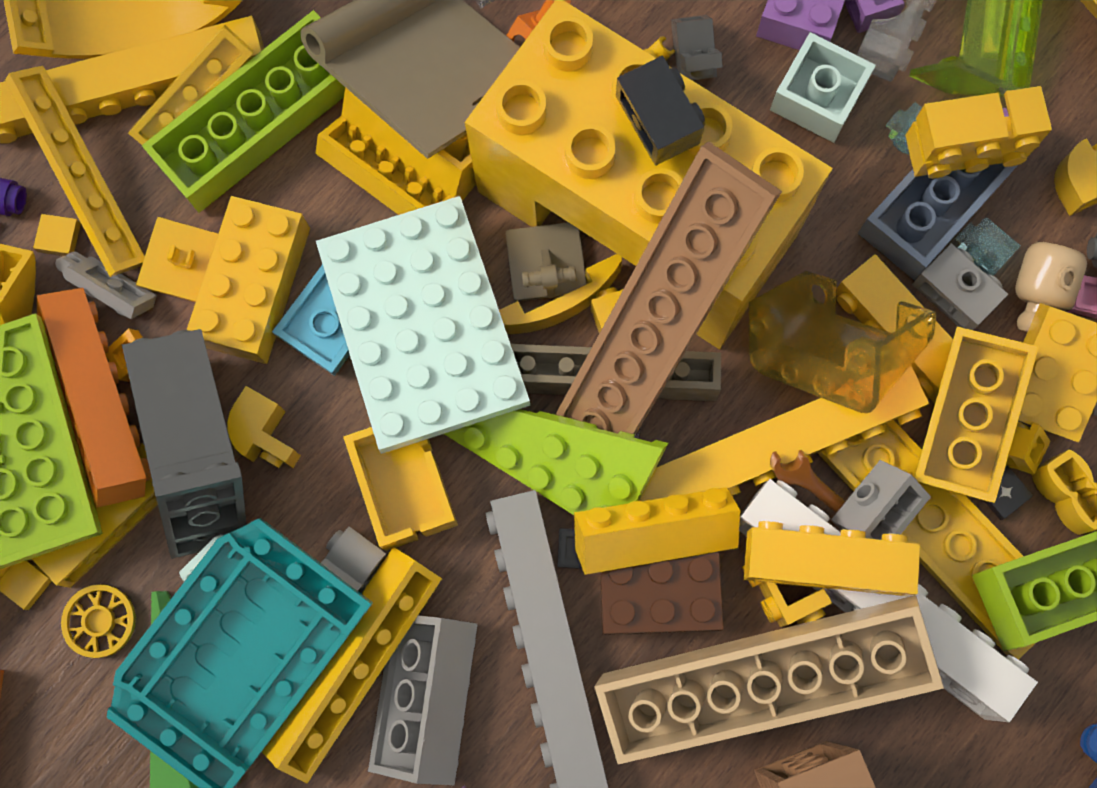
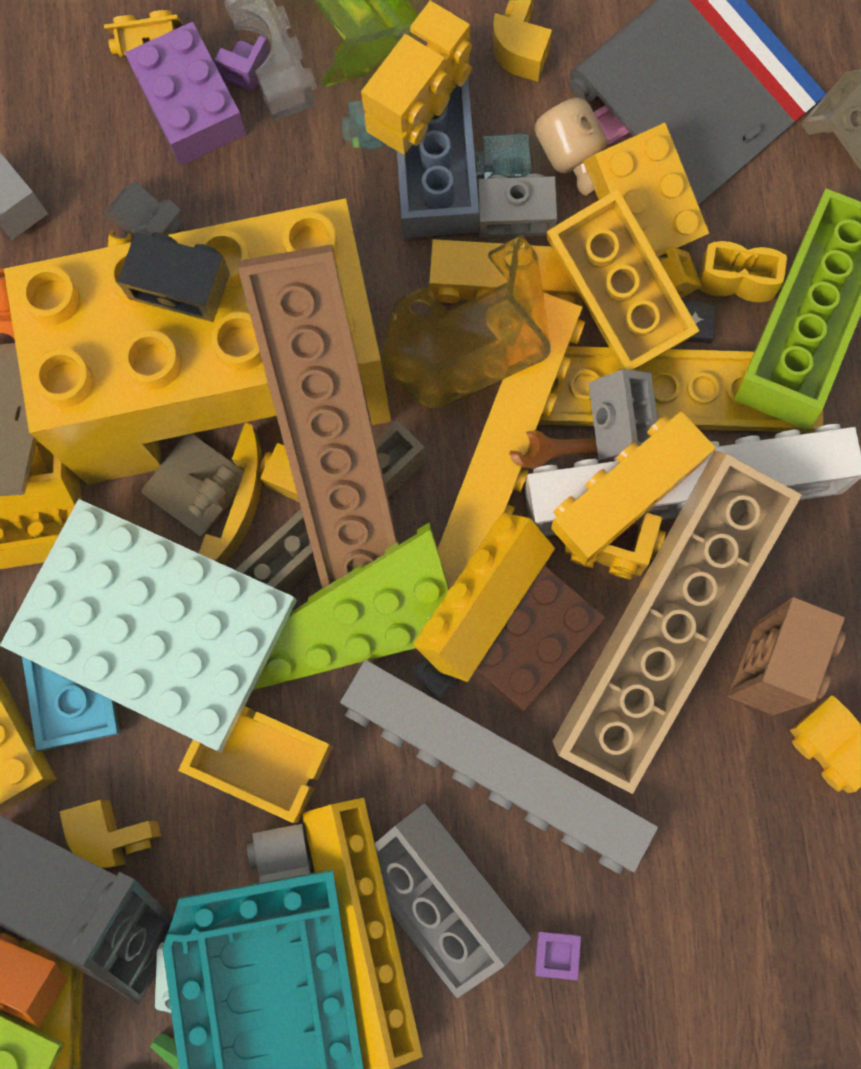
camera: 45 degrees left, 0 degrees up
(822, 87) = (269, 155): light aqua brick -> none

